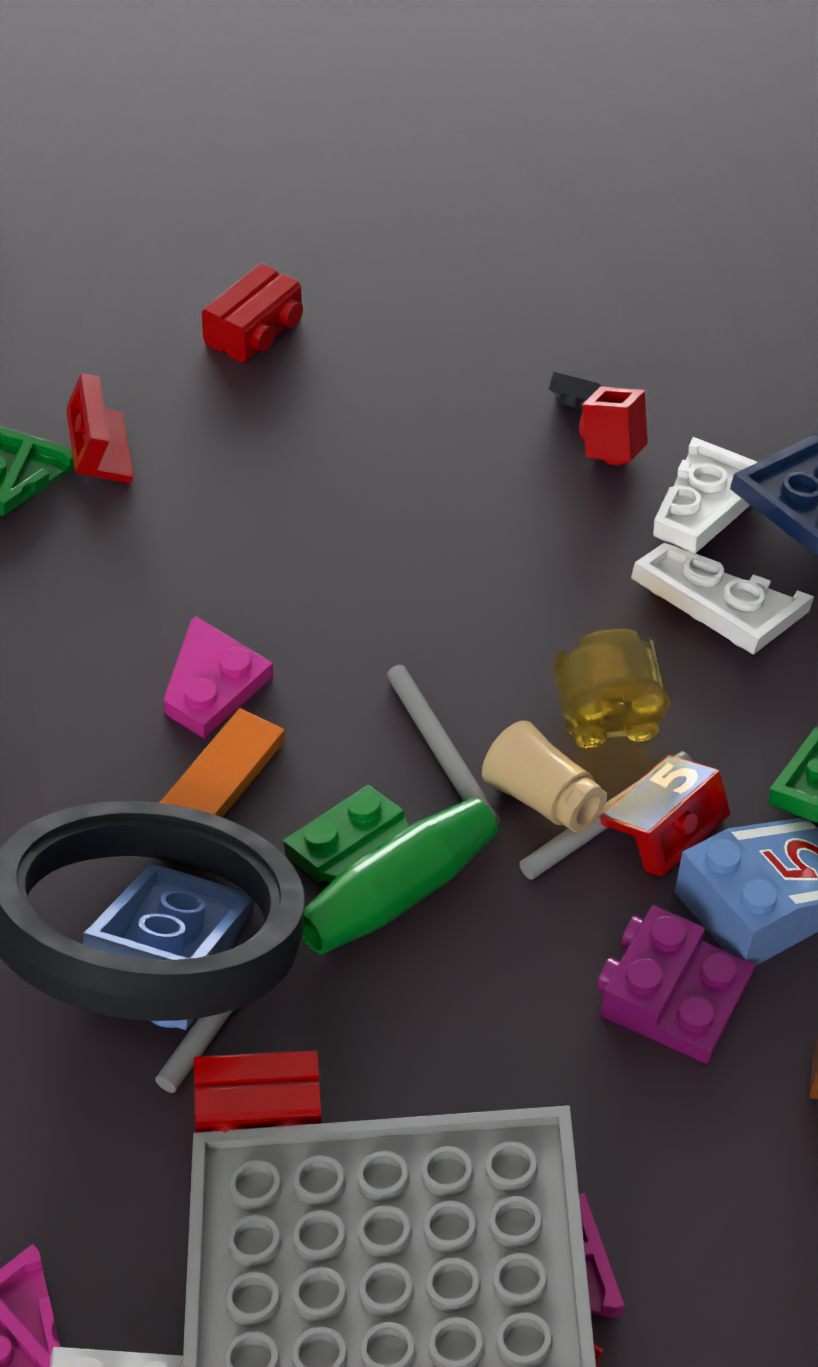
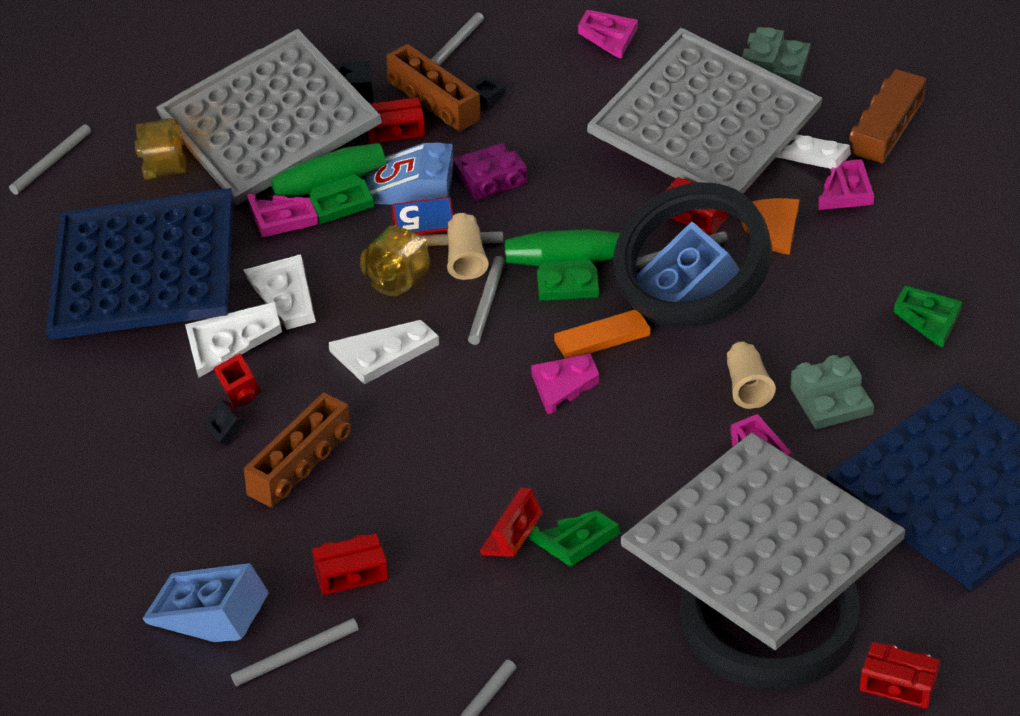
camera: 140 degrees left, 5 degrees down
(103, 1159) = (780, 218): none -> orange brick
(226, 229) = (294, 652): none -> light grey bar
(361, 210) = (209, 602): none -> medium blue slope
(443, 385) = (297, 450): none -> dark orange brick
(500, 595) = (384, 349): none -> white wing

